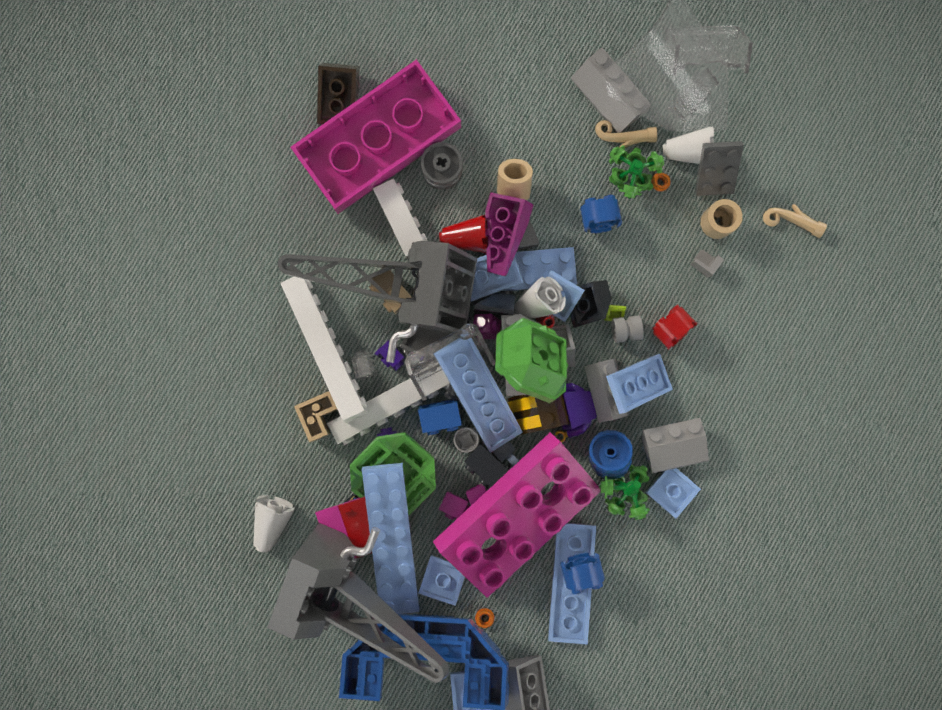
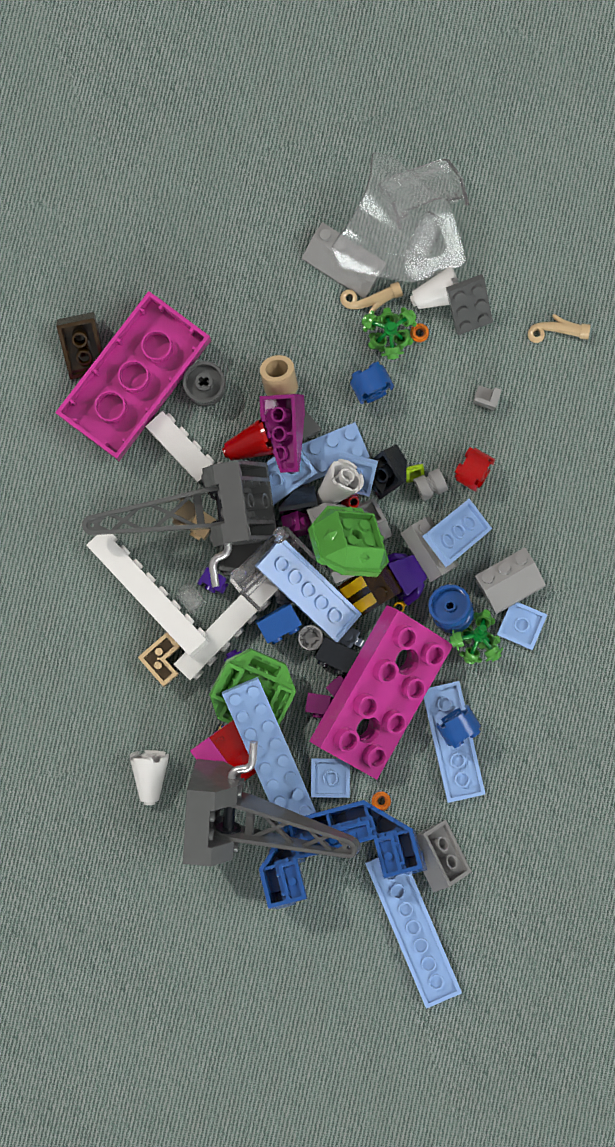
camera: 15 degrees left, 0 degrees up
(727, 212) = (496, 349): tan piece -> none

